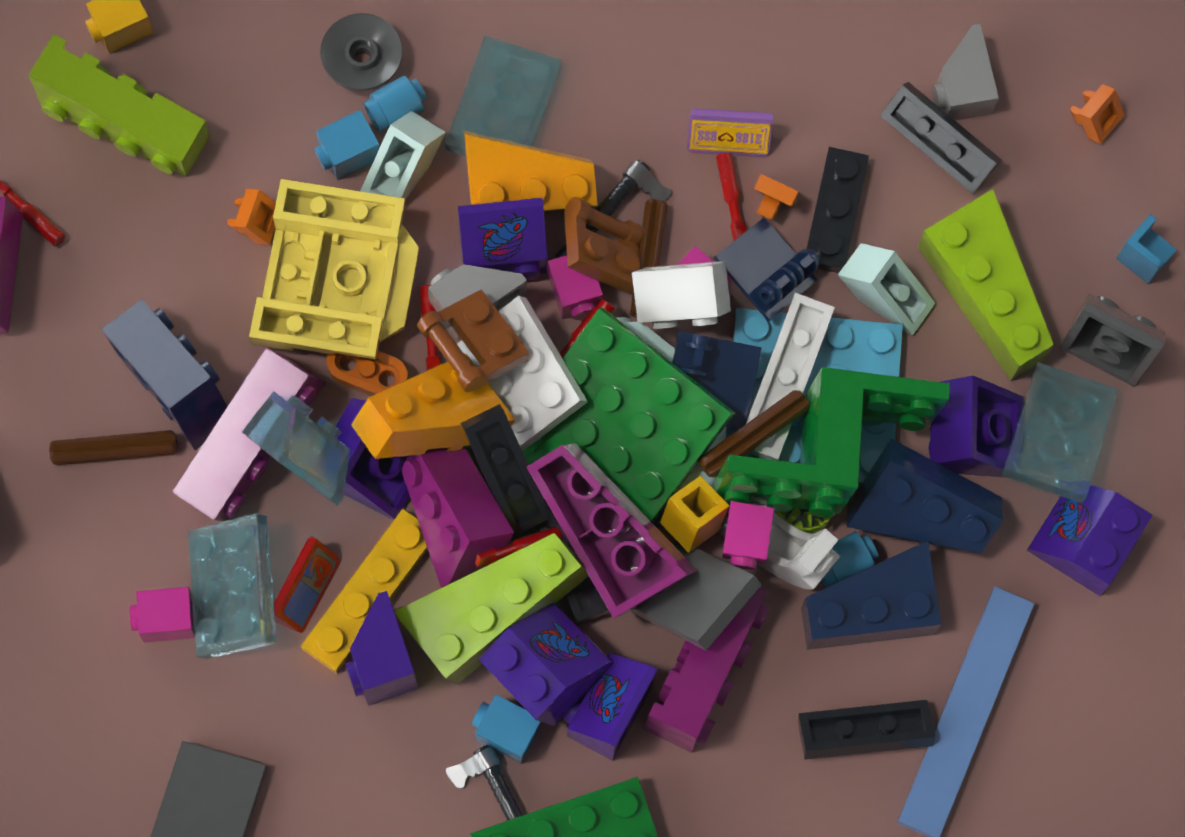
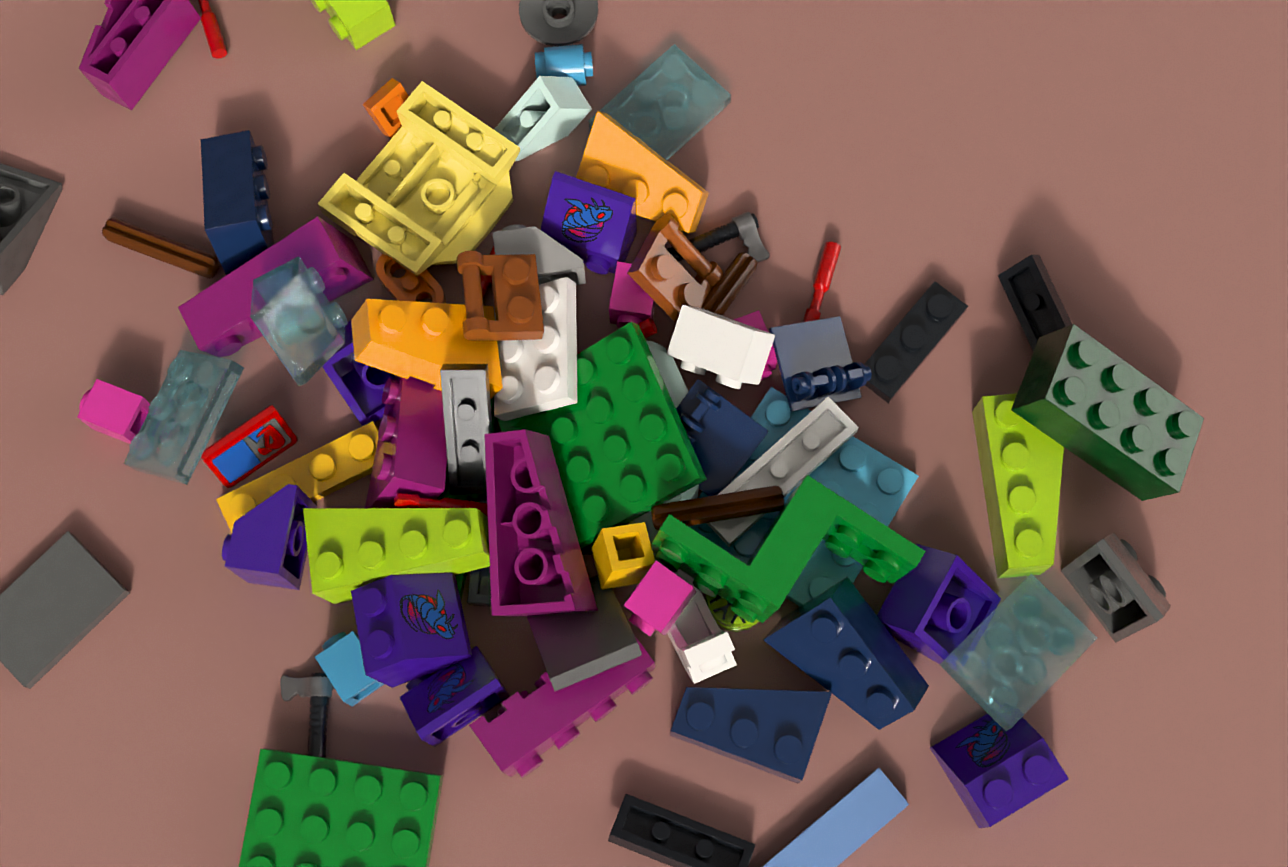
camera: 35 degrees right, 0 degrees up
(346, 145) = (499, 81): dark azure brick -> none
(729, 132) = (849, 226): slope -> none
(775, 195) = (859, 302): orange tile -> none
(855, 556) = (753, 670): dark azure brick -> none
(887, 286) = (922, 434): light aqua slope -> none
(967, 80) = (1097, 279): light grey slope -> none
(1035, 195) = (1108, 413): none -> dark green brick
(1099, 113) = (1212, 368): orange tile -> none
(1146, 251) = (1192, 519): dark azure panel -> none

